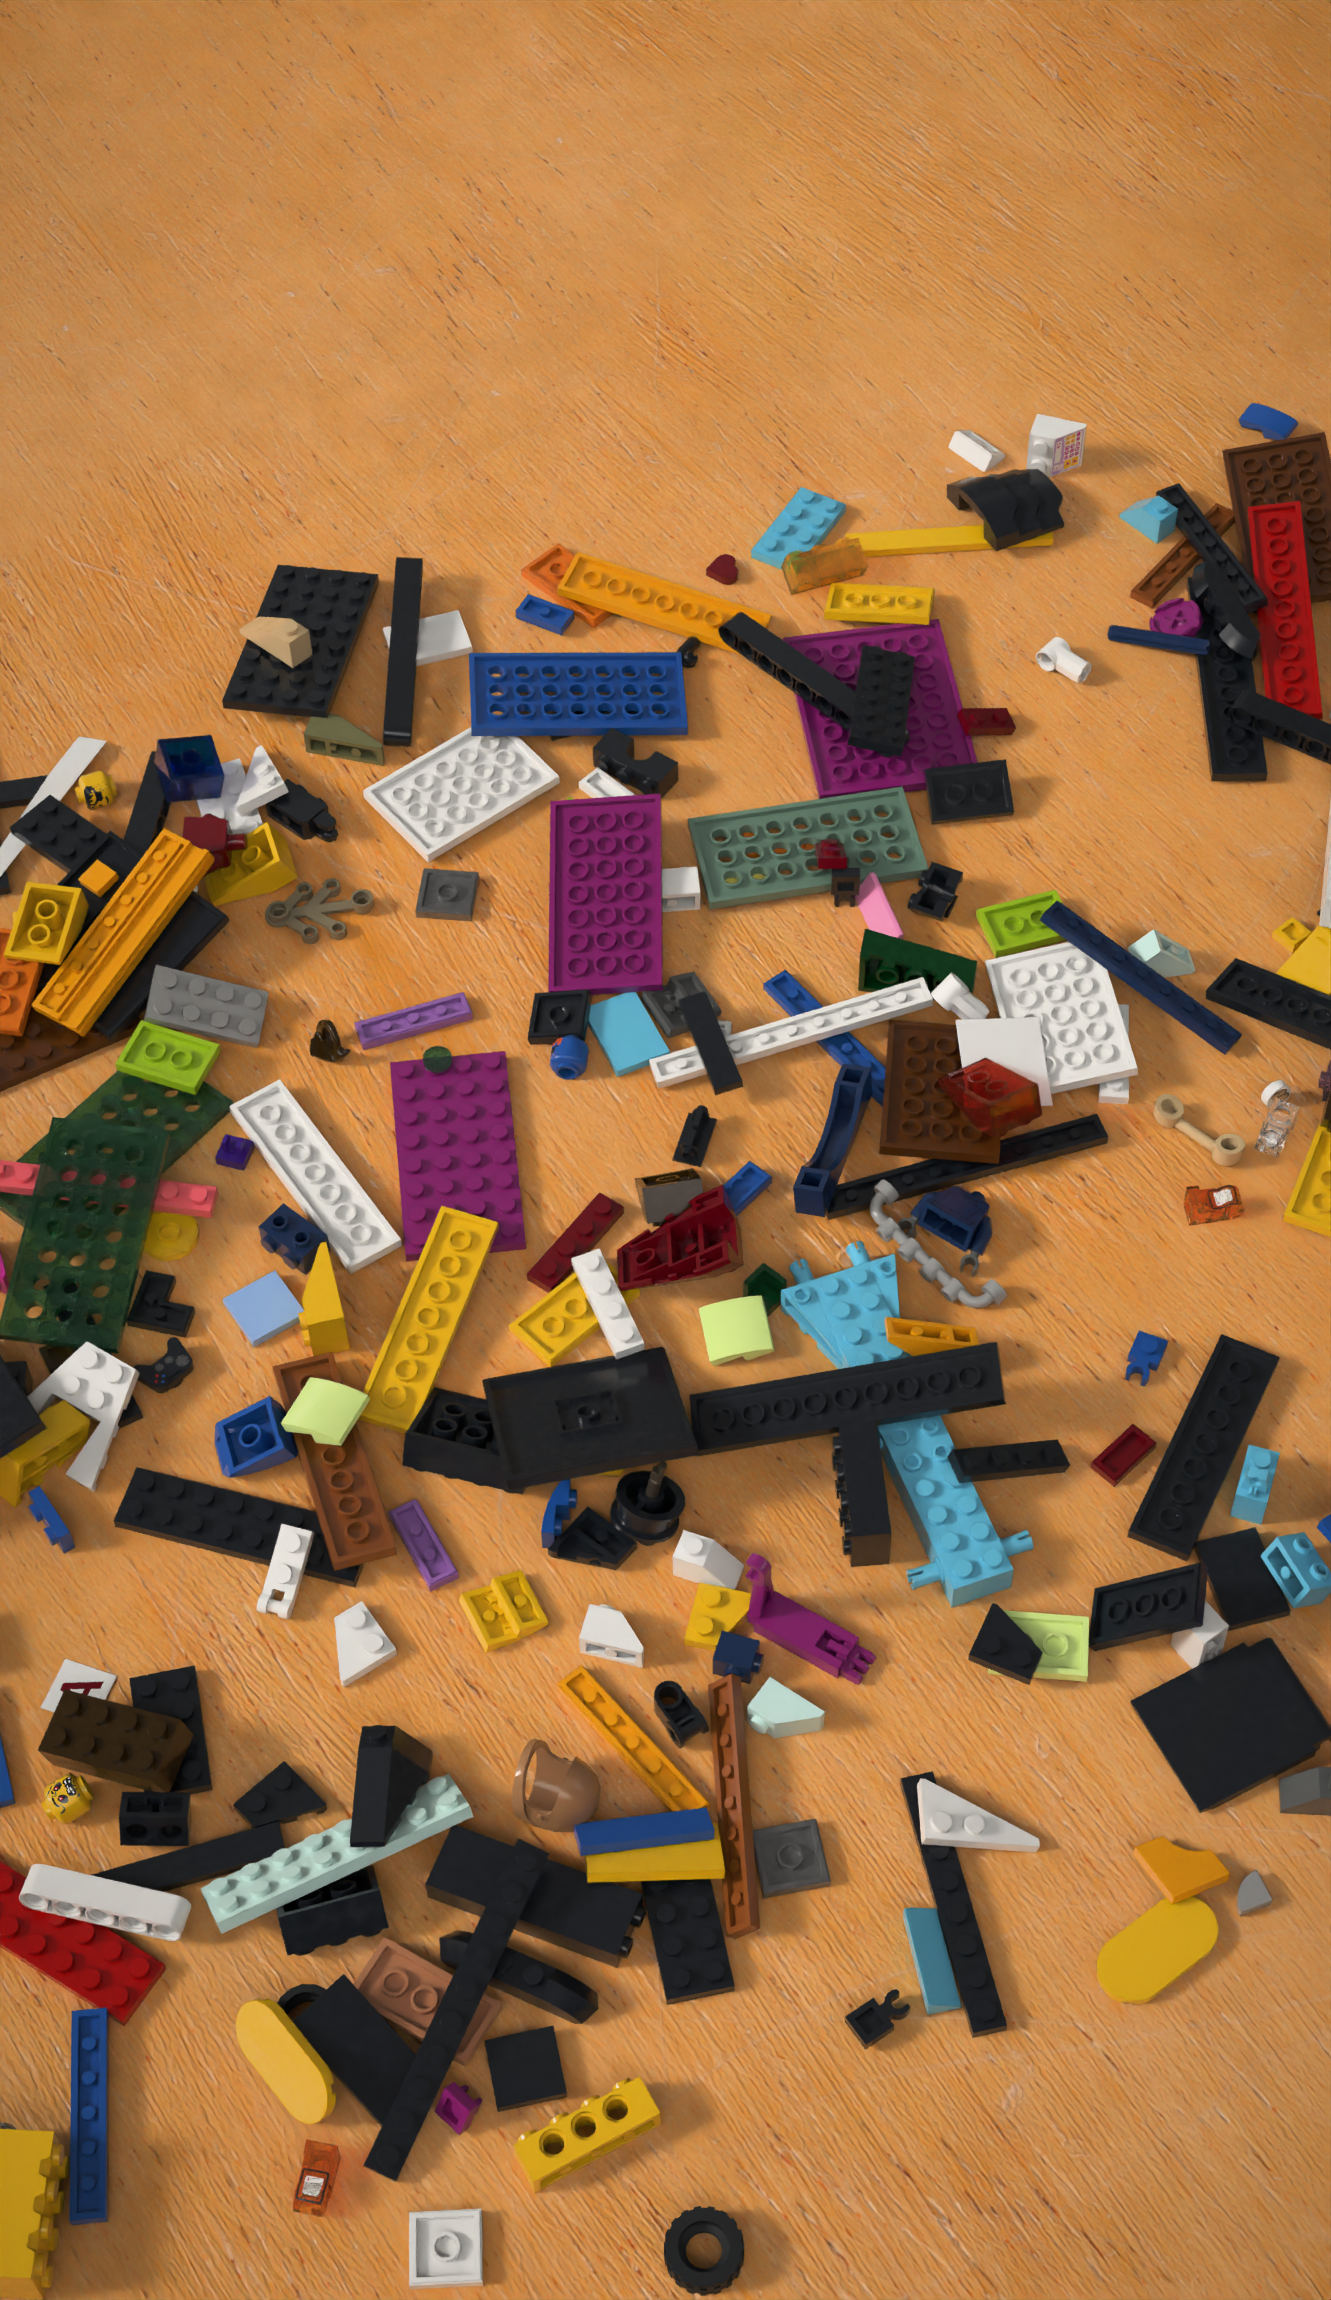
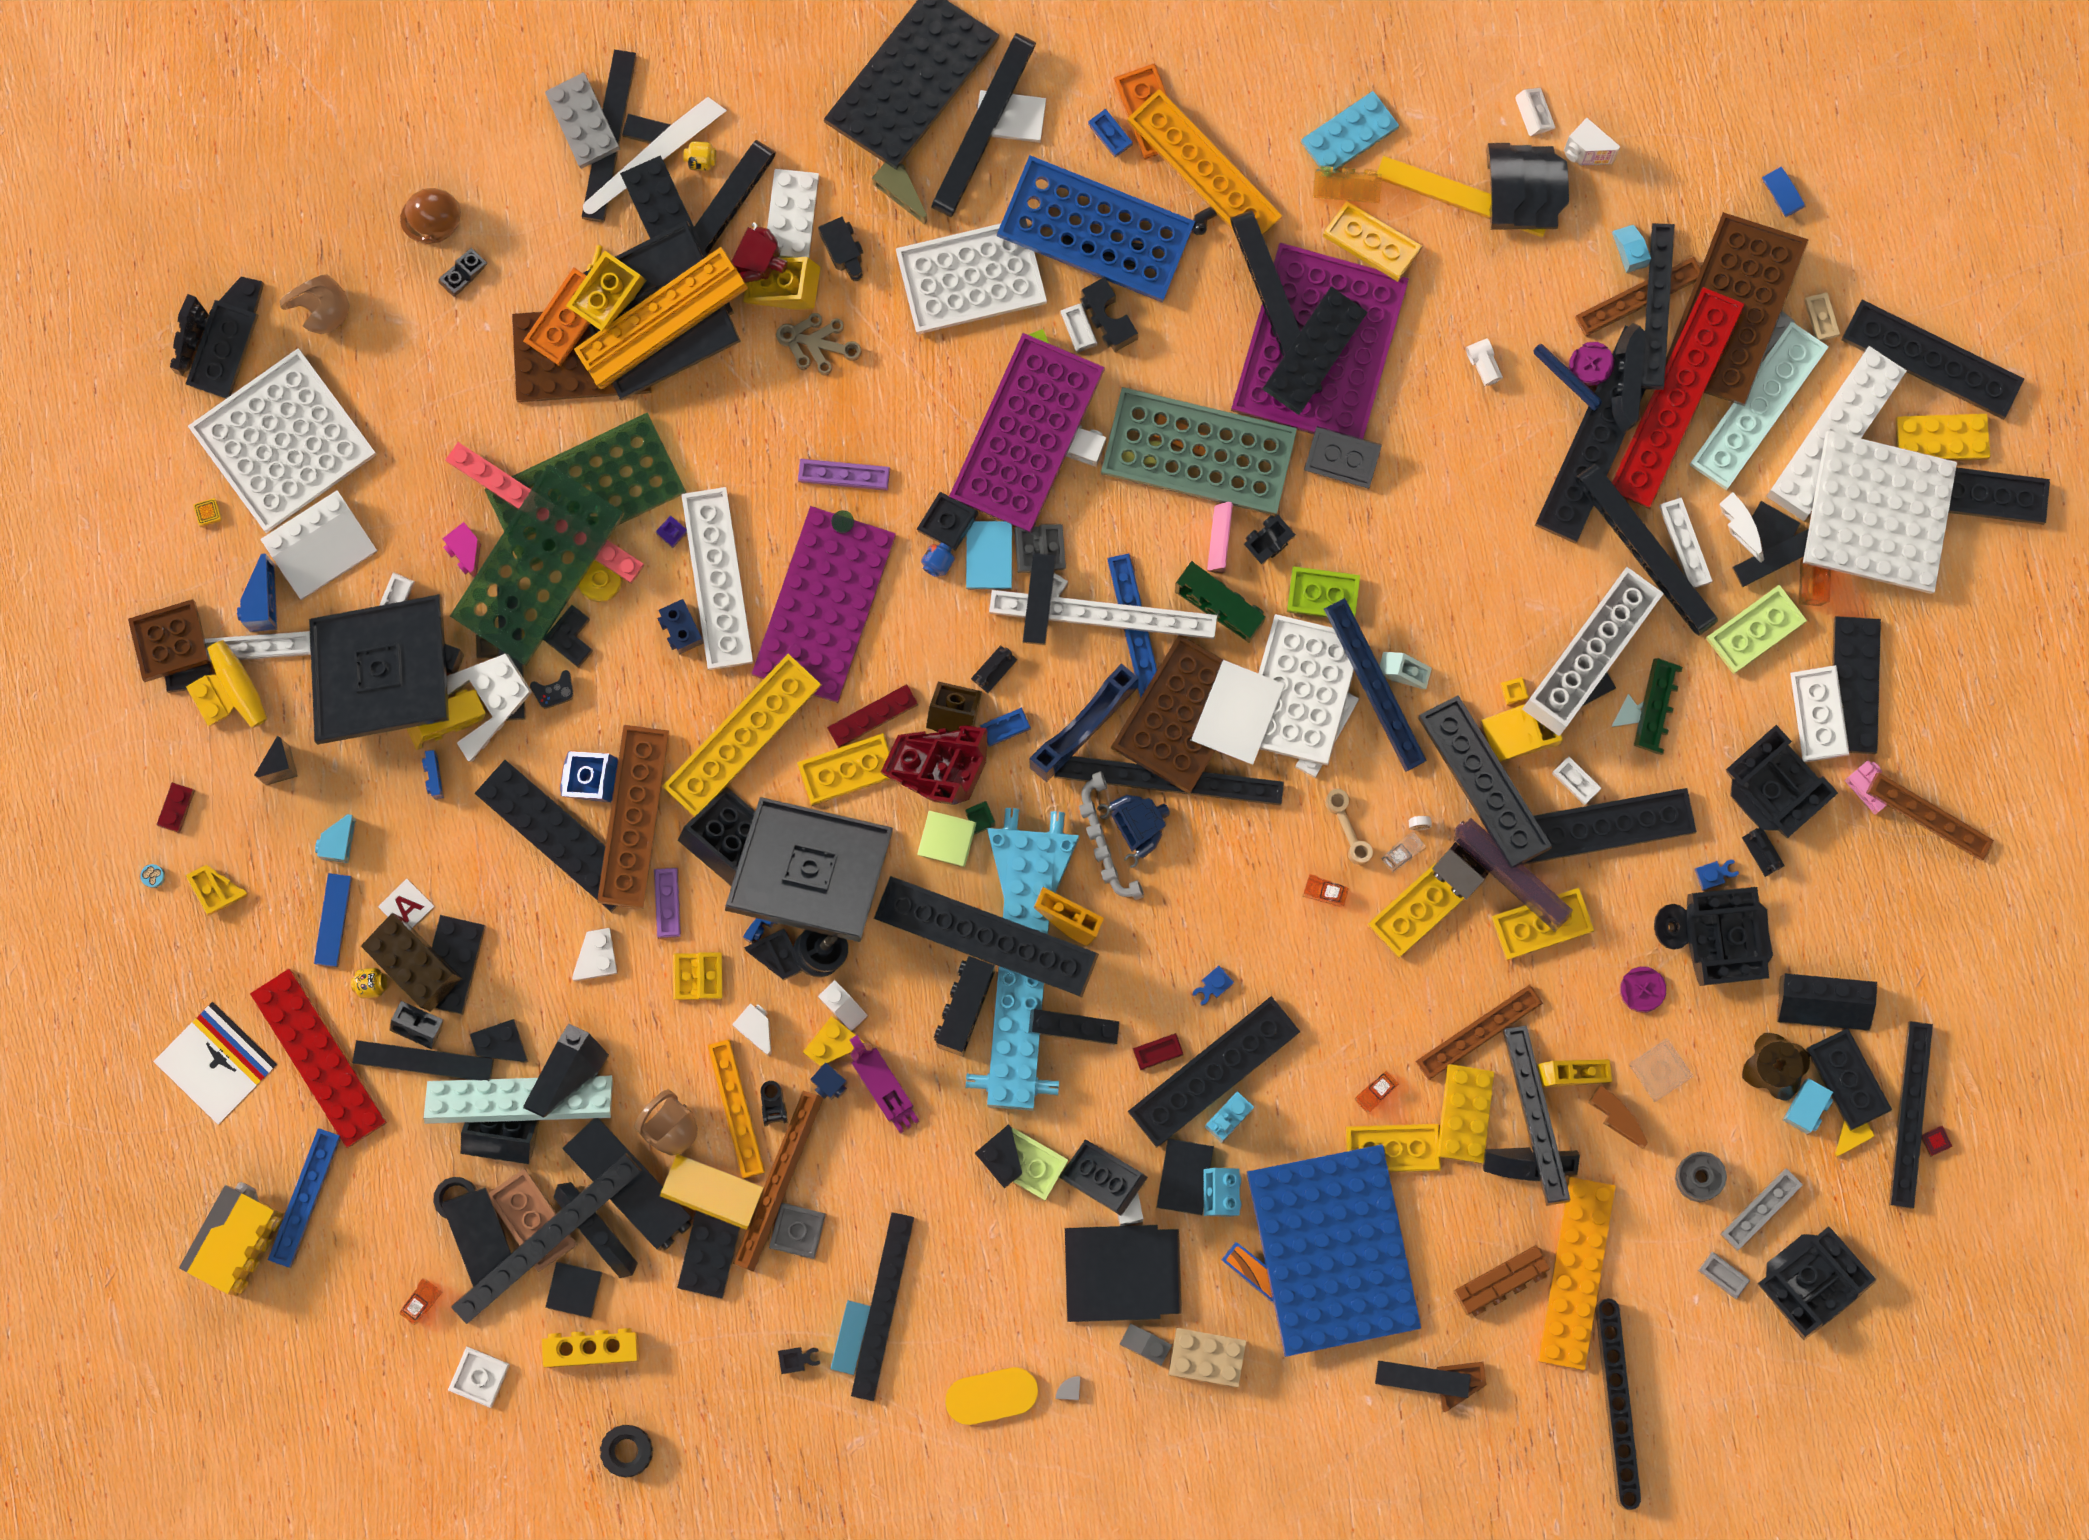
camera: 25 degrees right, 25 degrees up
(98, 878) = (662, 260): light orange tile -> none
(105, 1902) = (363, 1068): white beam -> none
(168, 1057) = (653, 436): lime plate -> none
(189, 768) = (770, 179): clear blue brick -> none
(206, 1006) = (697, 403): light grey plate -> none
(261, 783) = (822, 212): white wing -> none
(263, 1308) = (639, 671): light blue tile -> none
(281, 638) = (888, 78): tan slope -> none
(285, 2060) = (431, 1222): yellow tile -> none
(286, 1571) = (569, 884): white plate -> none
(323, 1316) = (674, 697): yellow slope -> none
(325, 1411) = (640, 782): yellowish green slope -> none
(326, 1043) = (772, 470): dark brown piece -> none
(447, 894) = (917, 371): flat silver tile -> none
(457, 2107) = (521, 1297): magenta tile -> none
(608, 1304) = (869, 779): white plate -> none
(643, 1831) = (711, 1176): blue tile -> none
(723, 569) = (1271, 148): dark red tile -> none
(783, 1712) = (838, 1132): light aqua slope -> none
(830, 854) = (1204, 476): dark red plate -> none
(845, 885) = (1205, 502): black plate -> none
(955, 996) = (1233, 640): white piece -> none
(958, 1823) = (909, 1260): white wing -> none
(986, 721) = (1392, 395): dark red plate -> none
(993, 1096) = (1209, 742): clear red slope -> none
(1180, 1871) = (1031, 1354): light orange tile -> none

